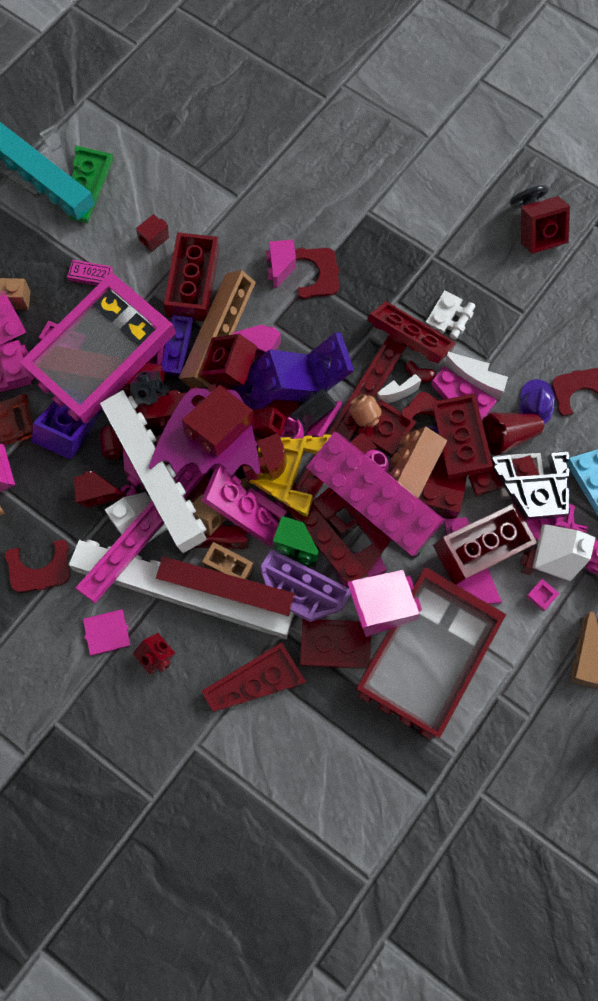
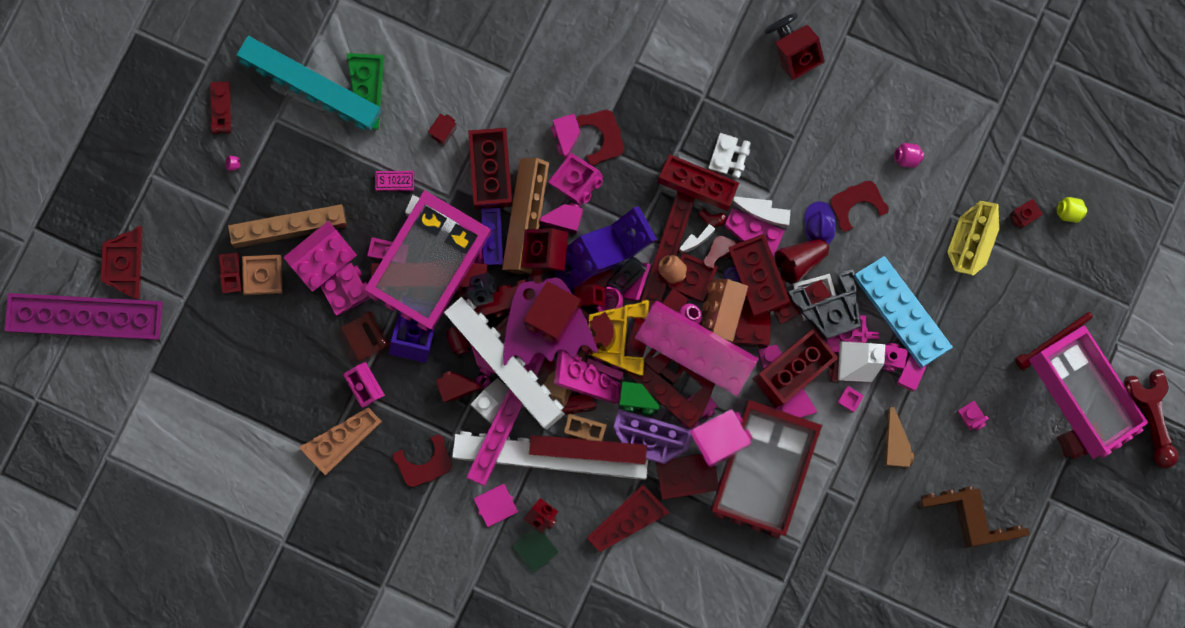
camera: 15 degrees left, 10 degrees up
(139, 693) = (535, 549): none -> clear green piece
(281, 306) = (576, 179): none -> dark pink plate

